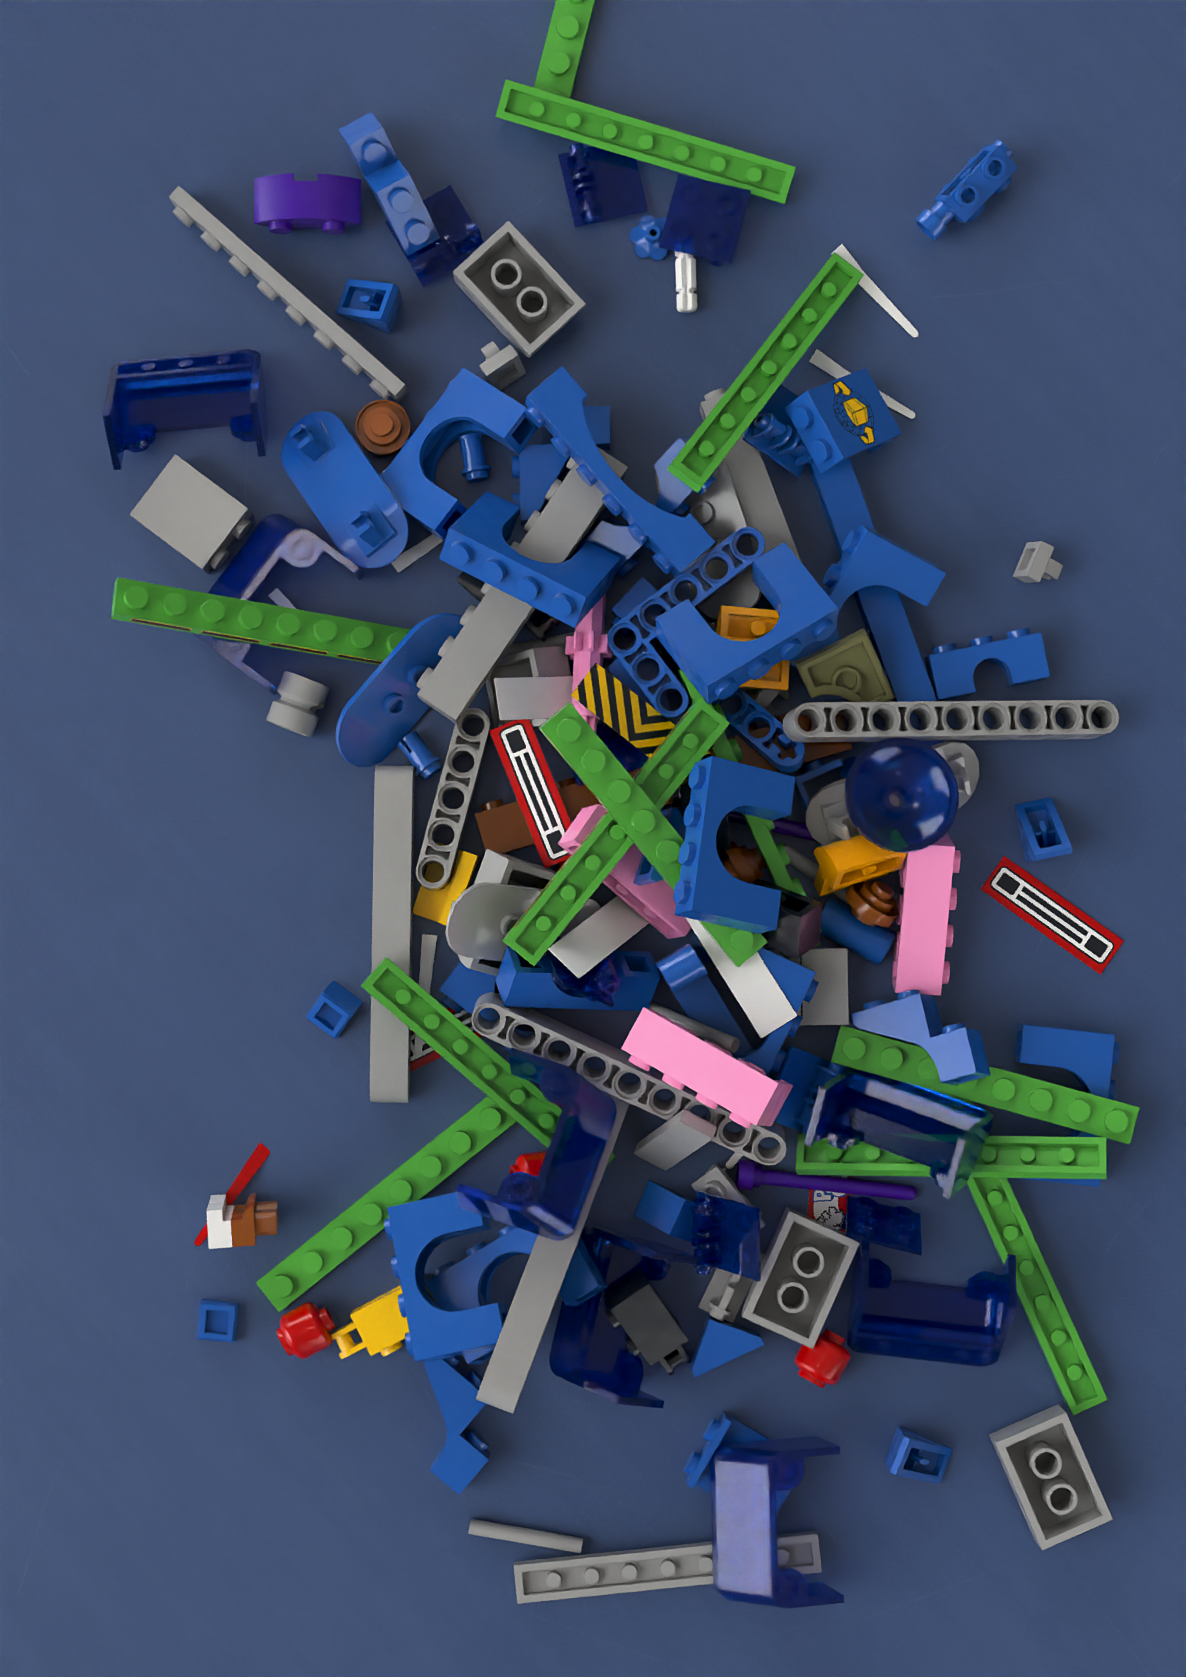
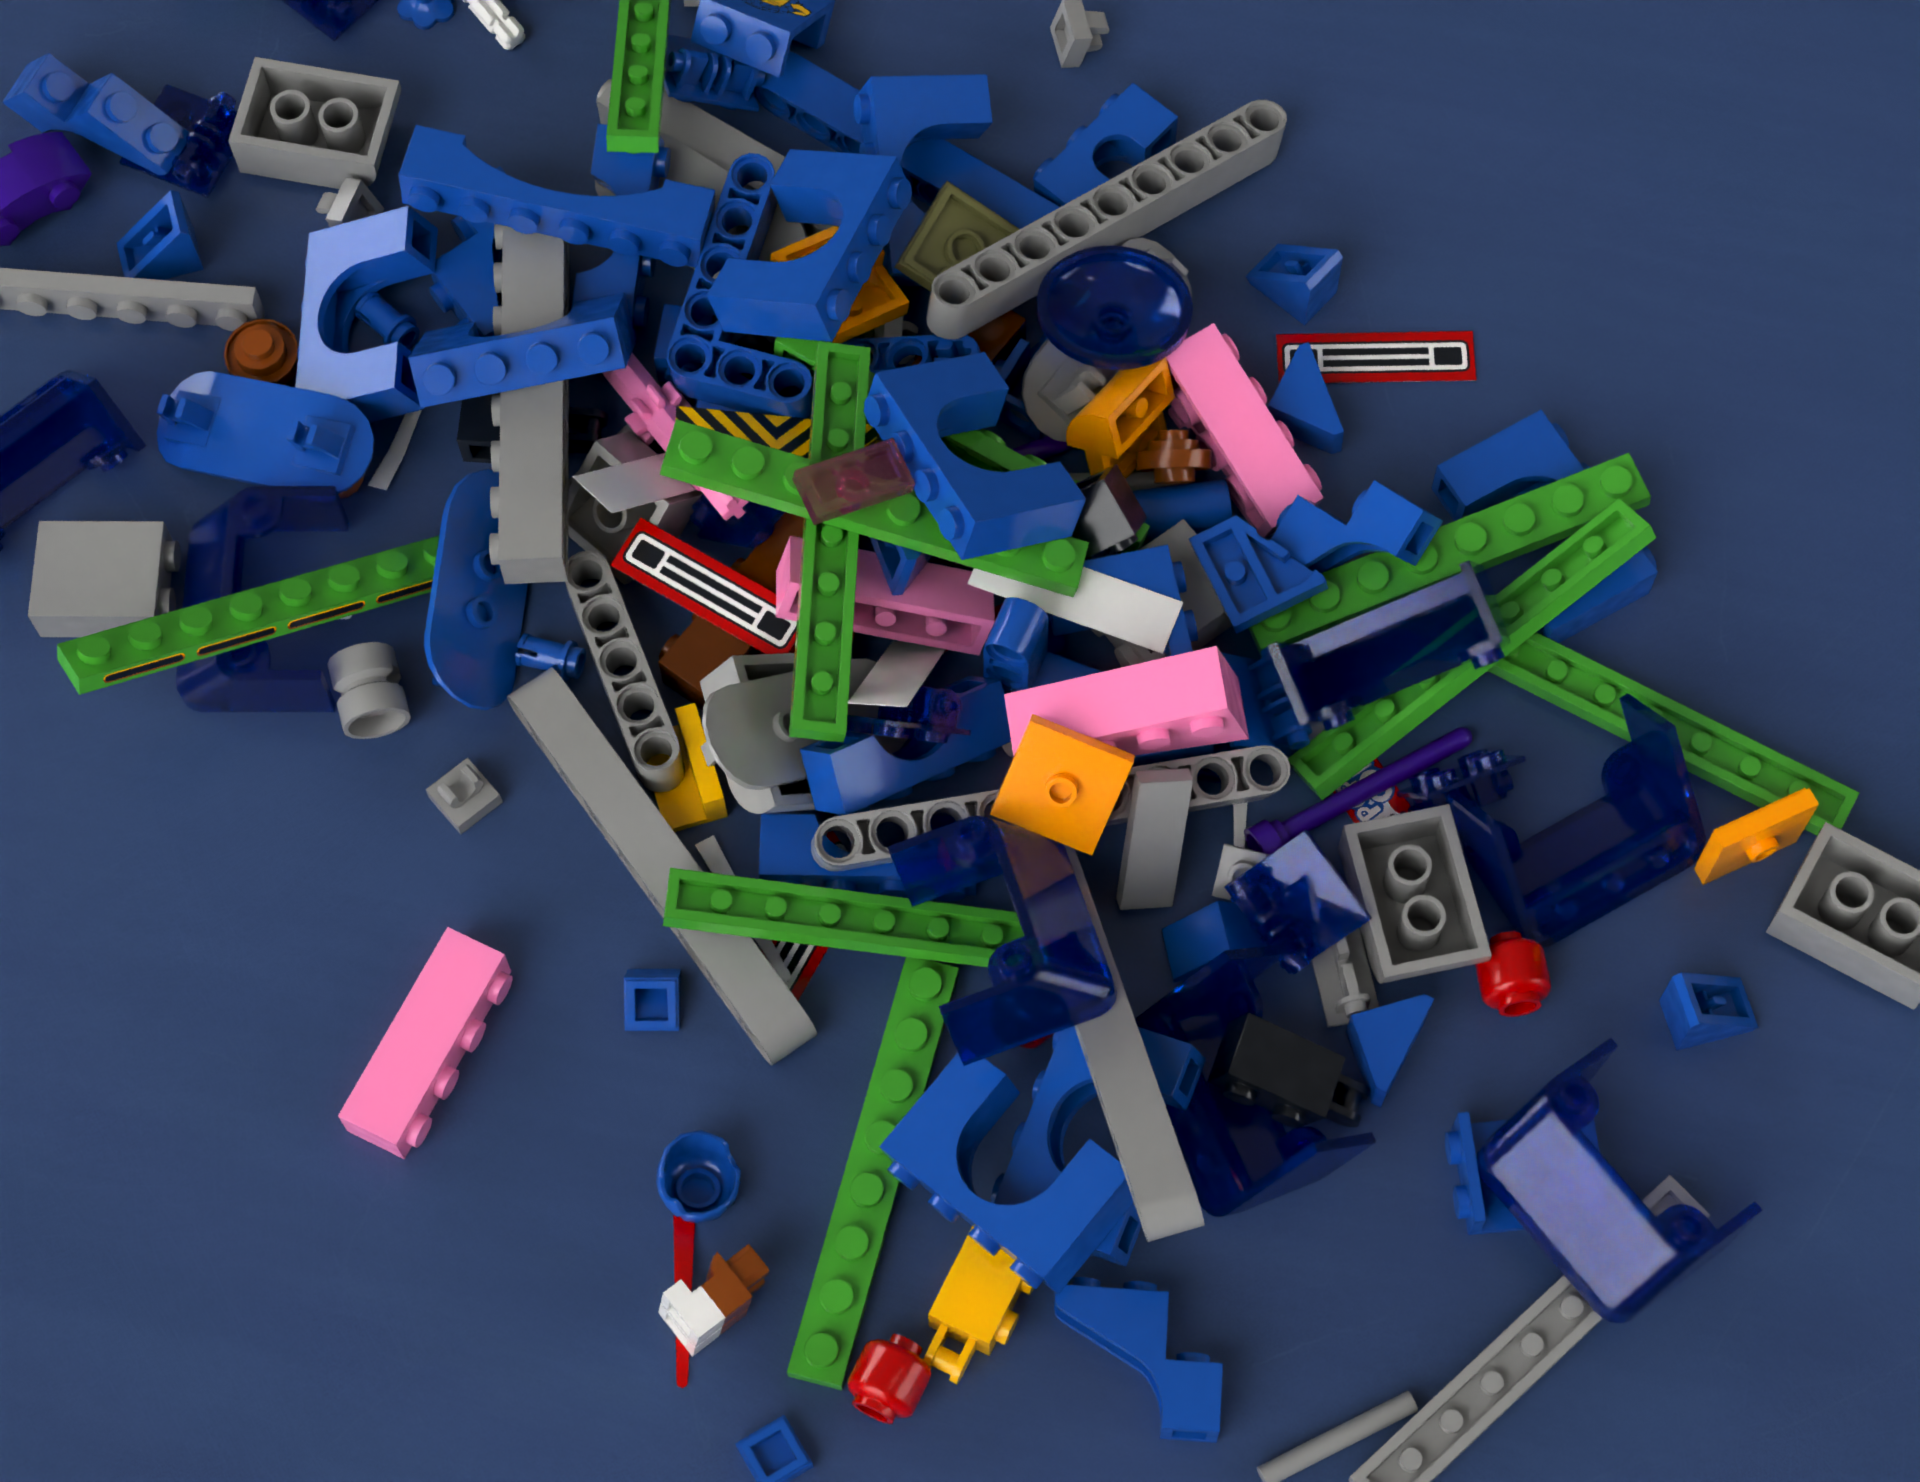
camera: 35 degrees left, 20 degrees down
(187, 947) = (427, 1043): none -> bright pink brick
(282, 1141) = (698, 1177): none -> blue hair
(311, 806) = (464, 795): none -> light grey tile
(636, 1086) = (1062, 784): none -> light orange plate
(646, 821) = (853, 481): none -> clear pink plate
(856, 1019) = (1251, 573): none -> blue wing
(981, 919) = (1306, 405): none -> blue slope
(1022, 1386) = (1756, 835): none -> light orange plate

